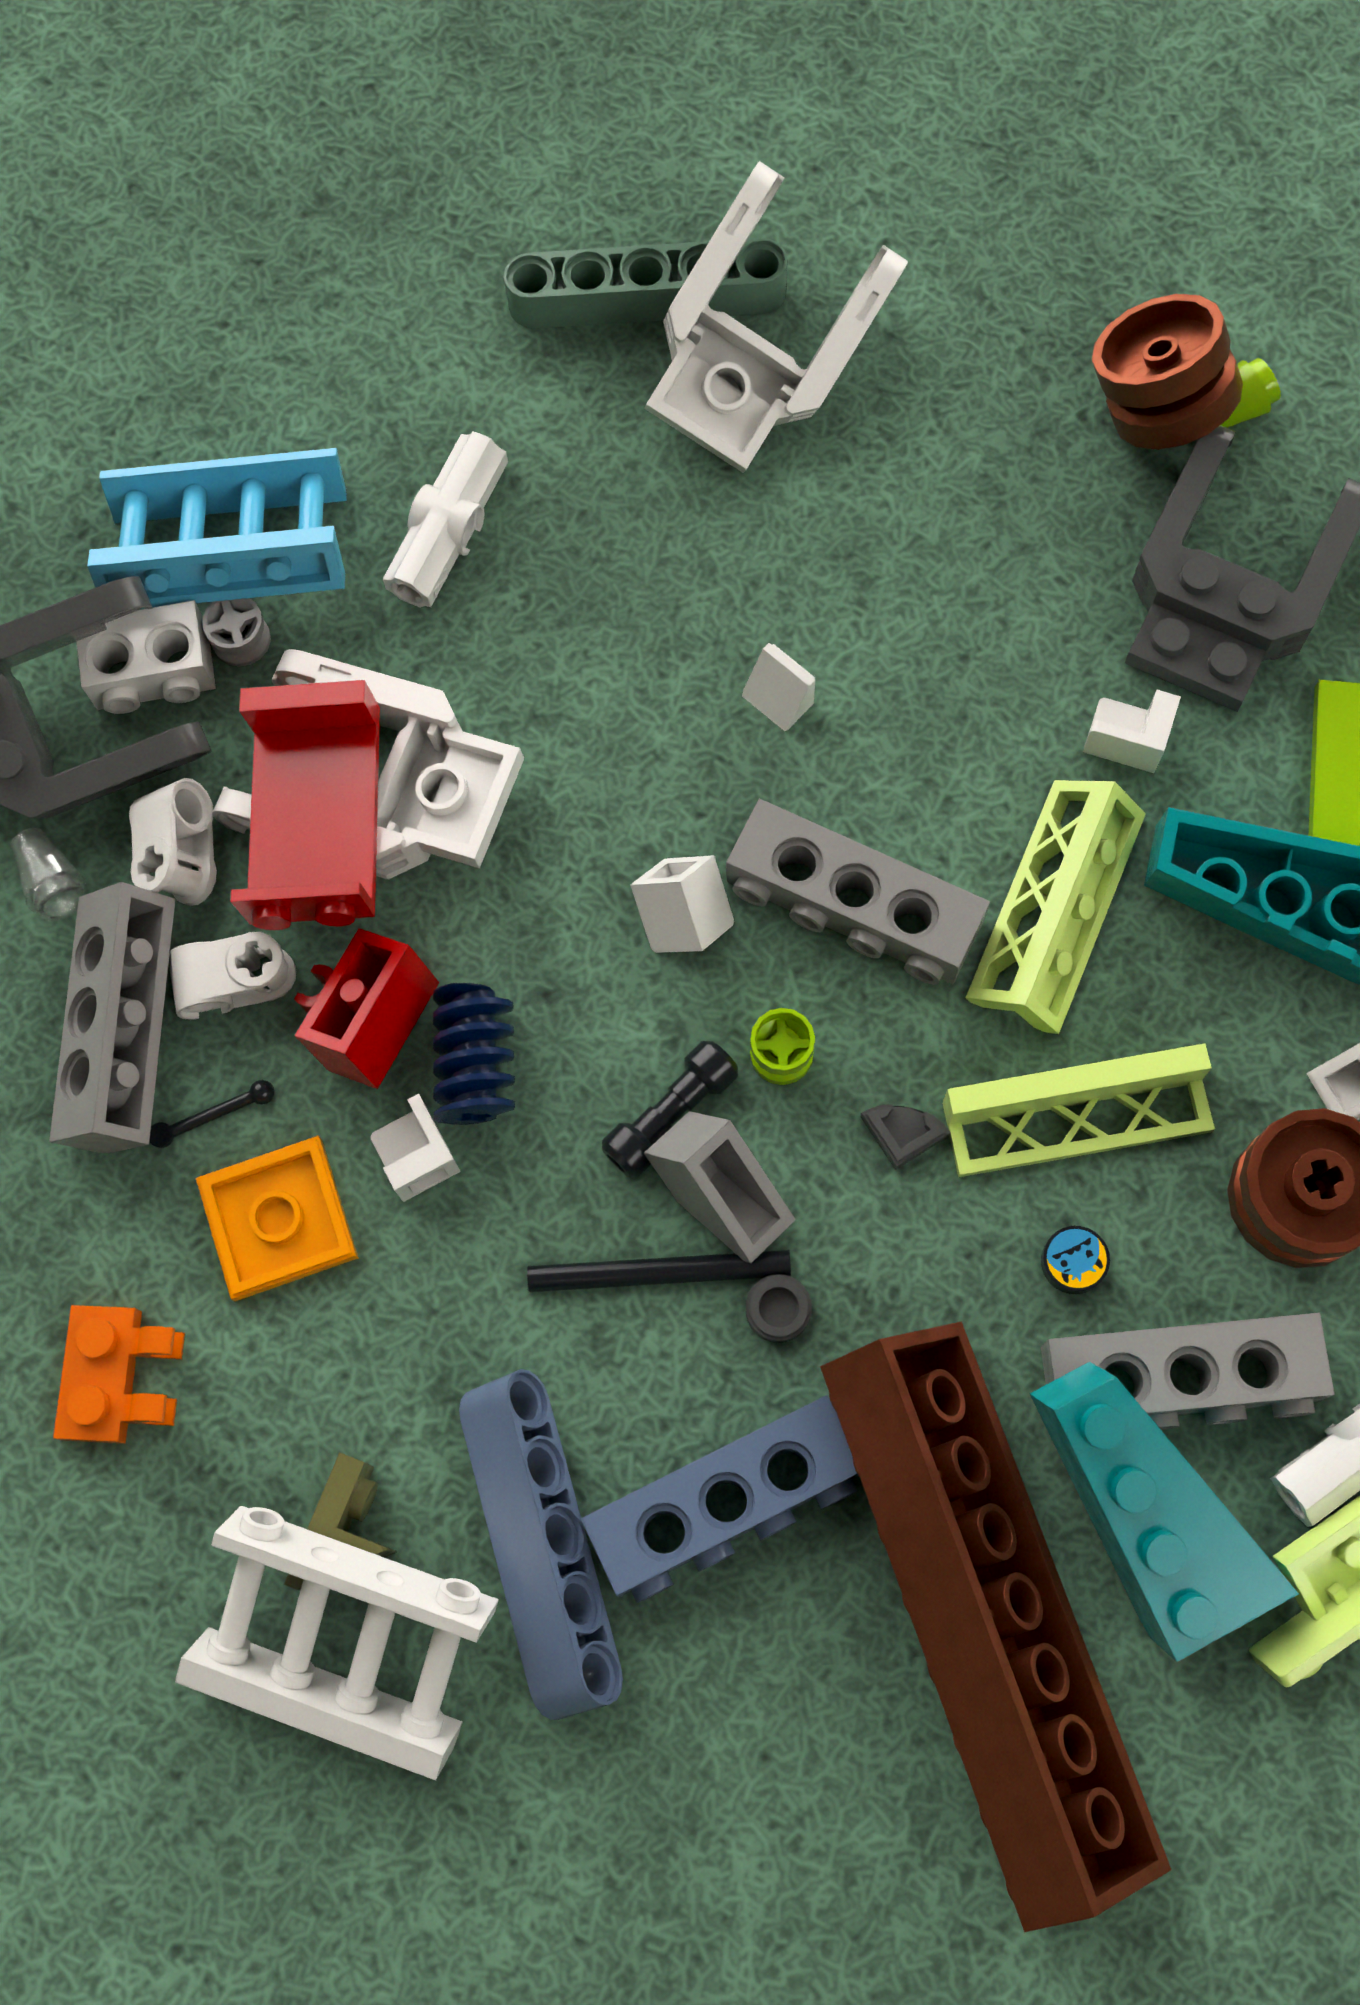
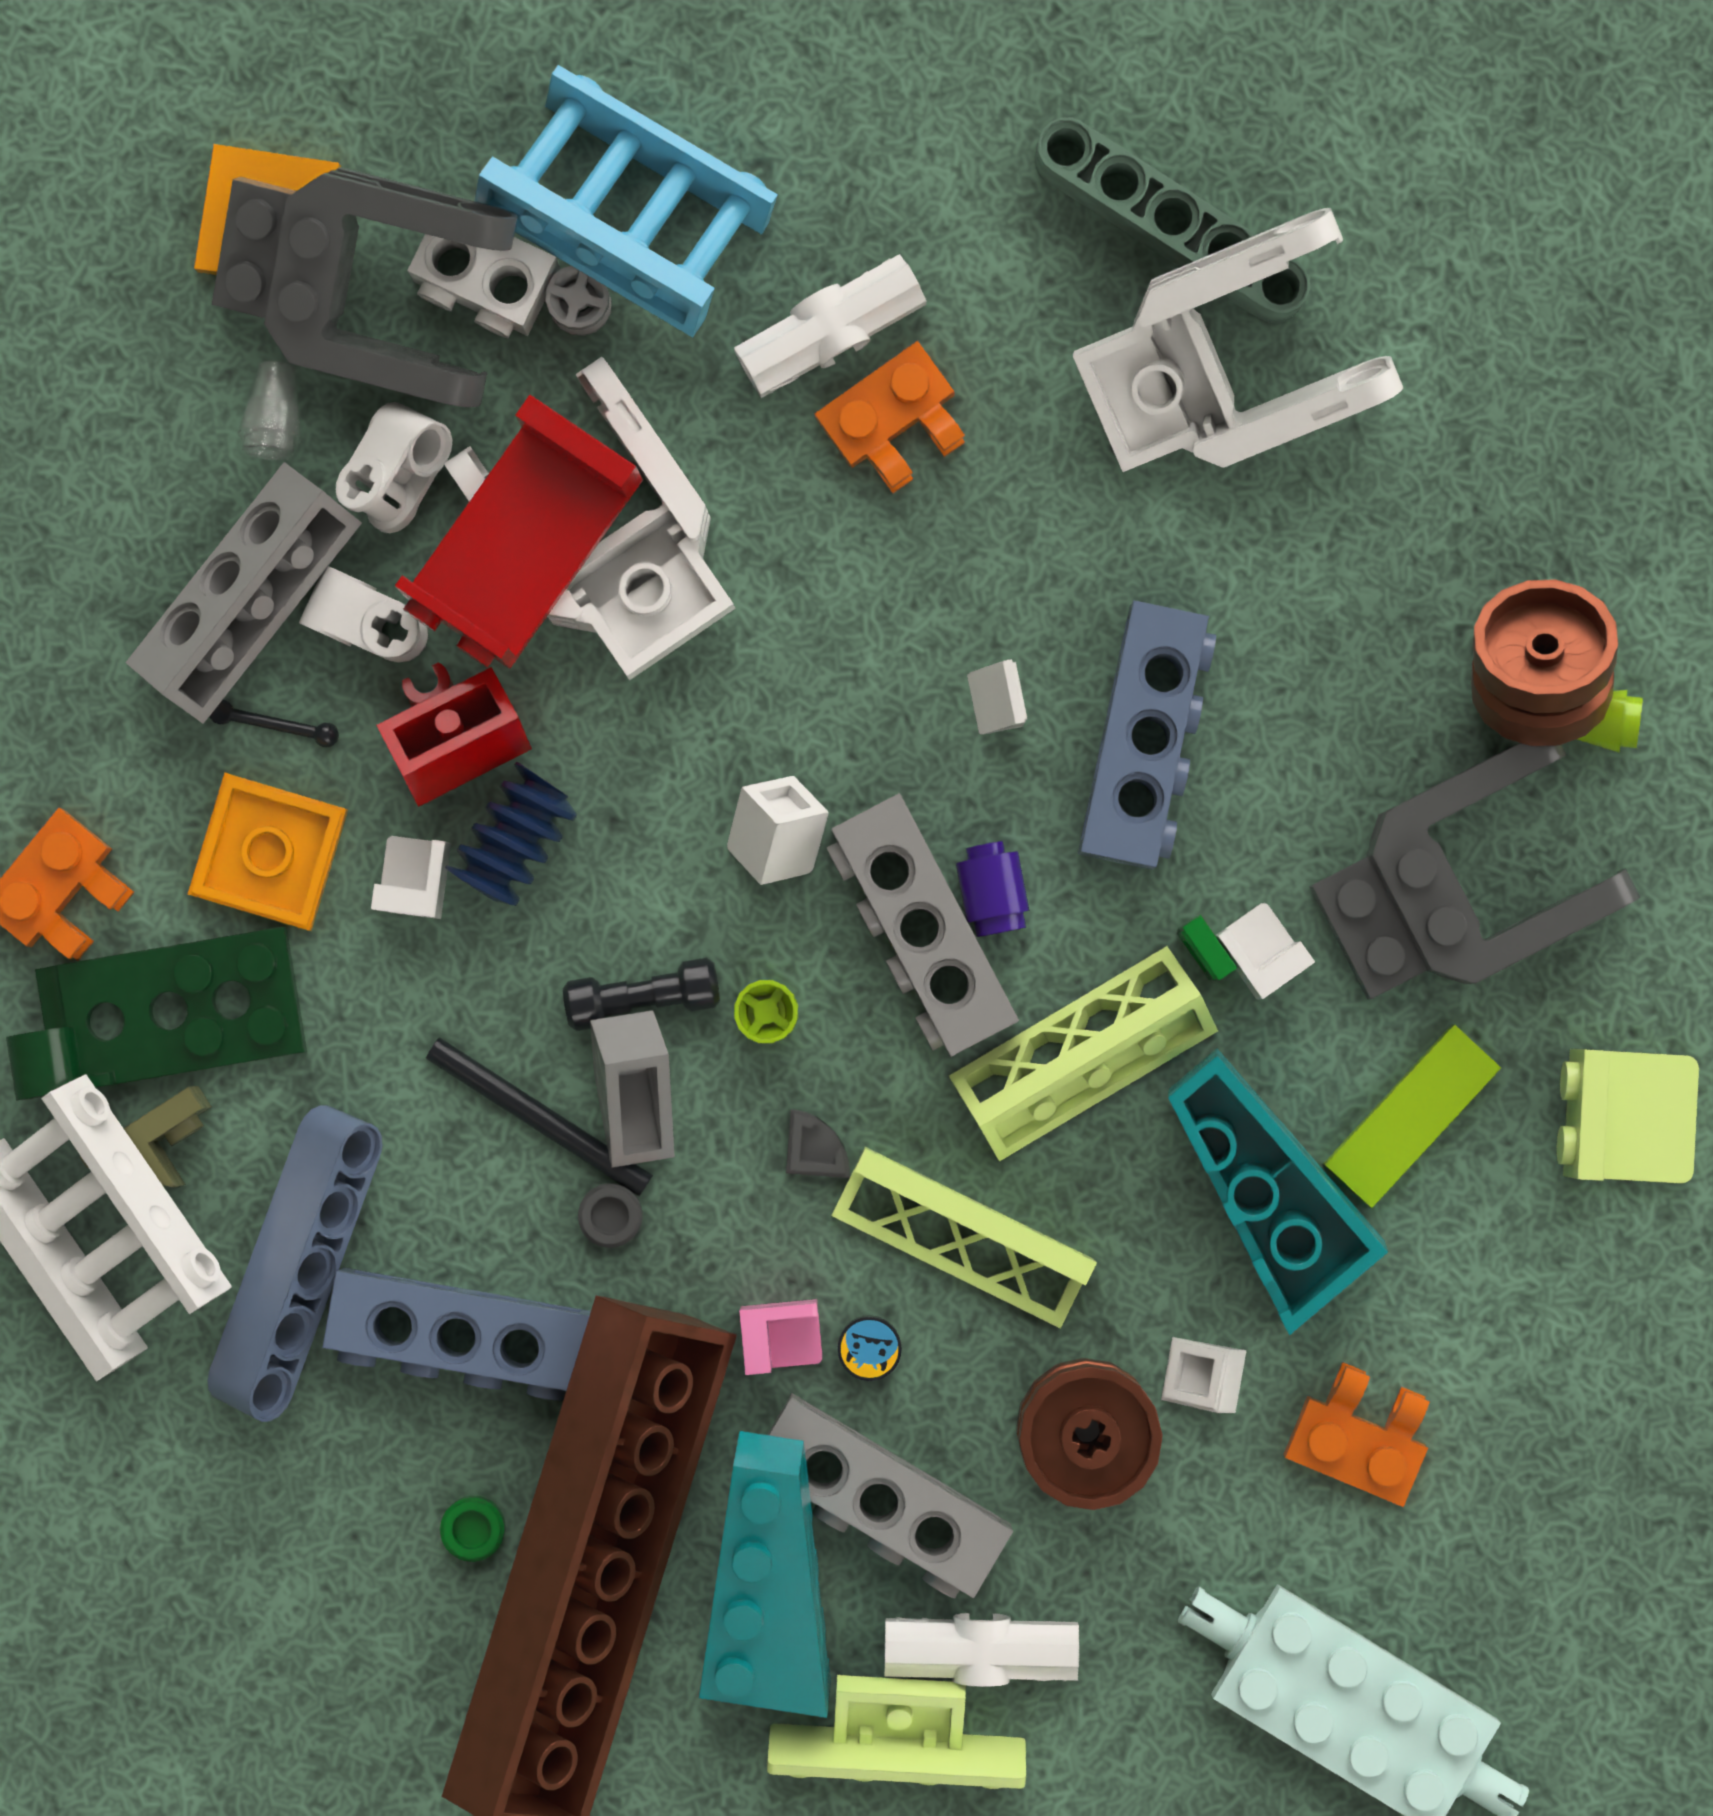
camera: 30 degrees right, 15 degrees up
(235, 1409) = (143, 1048): none -> dark green hinge
(530, 549) = (887, 405): none -> orange plate
(862, 1669) = (472, 1528): none -> green tile
(888, 825) = (993, 889): none -> dark purple brick
(940, 721) = (1148, 635): none -> sand blue brick
(994, 1301) = (780, 1335): none -> bright pink panel
(1087, 754) = (1206, 949): none -> green tile

